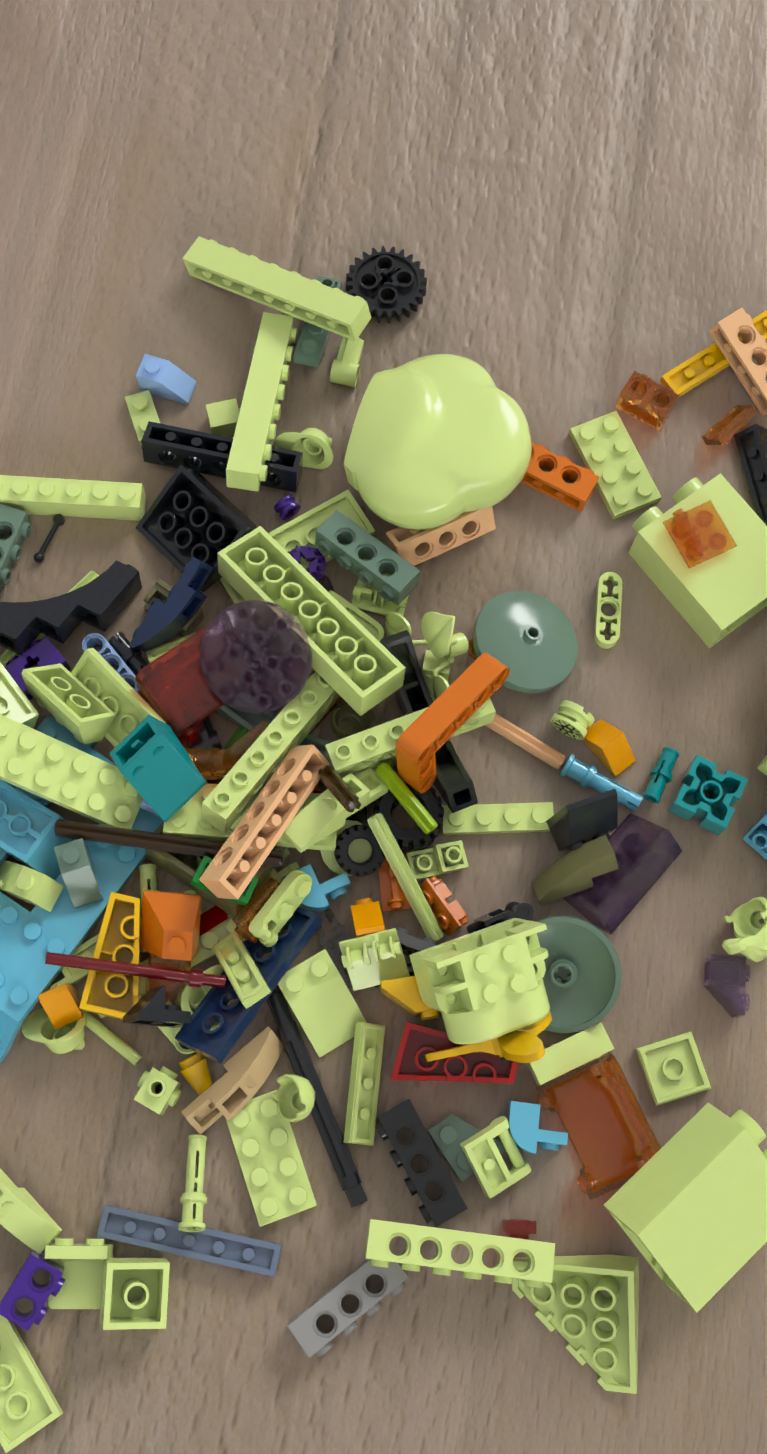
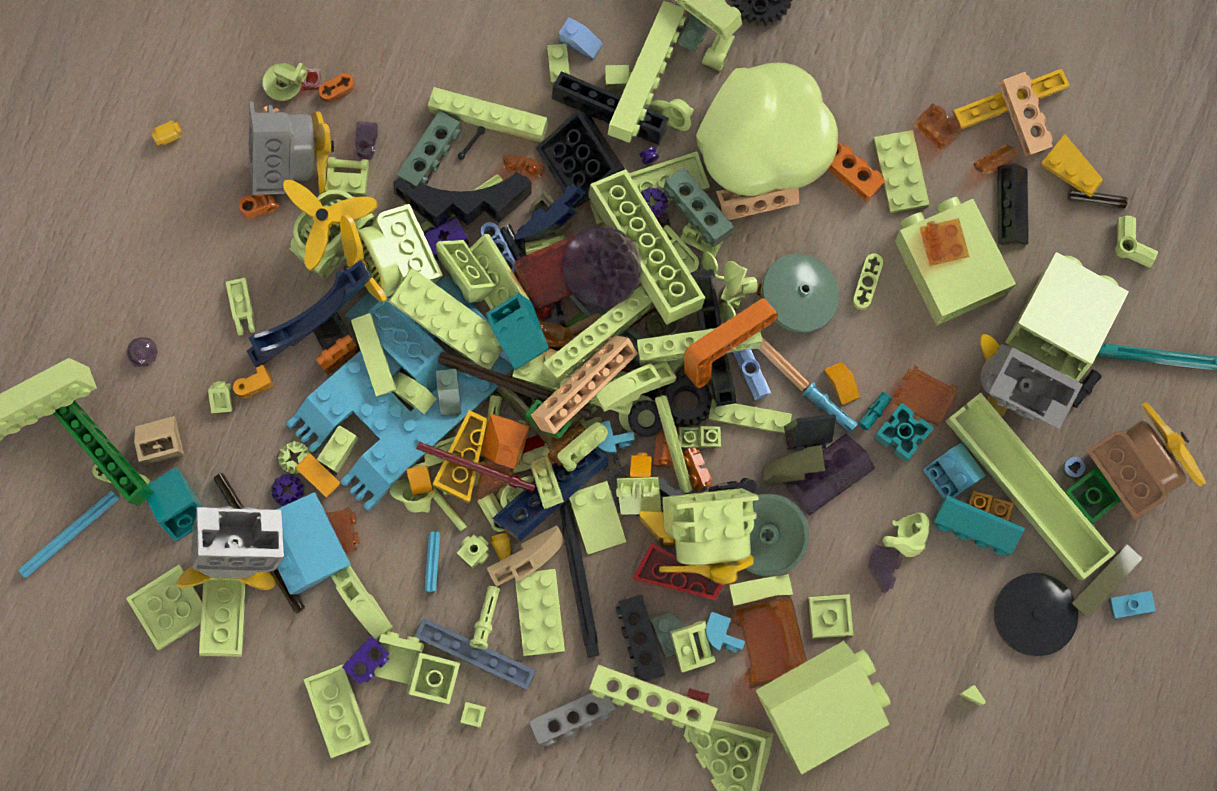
camera: 20 degrees right, 5 degrees up
(102, 1118) = (432, 561): none -> medium azure axle
(116, 549) = (518, 162): none -> clear orange slope
(153, 1012) = (482, 497): black slope -> none
(204, 1333) = (473, 714): none -> yellowish green plate
(294, 1097) = (564, 576): yellowish green hair -> none
(339, 788) = (639, 373): dark brown axle -> none
(364, 1084) = (614, 578): yellowish green tile -> none
(406, 798) = (686, 388): lime axle -> none
(493, 769) = (755, 381): none -> light blue piece
(572, 720) = (820, 358): yellowish green wheel -> none
(722, 740) = (925, 395): none -> clear orange panel

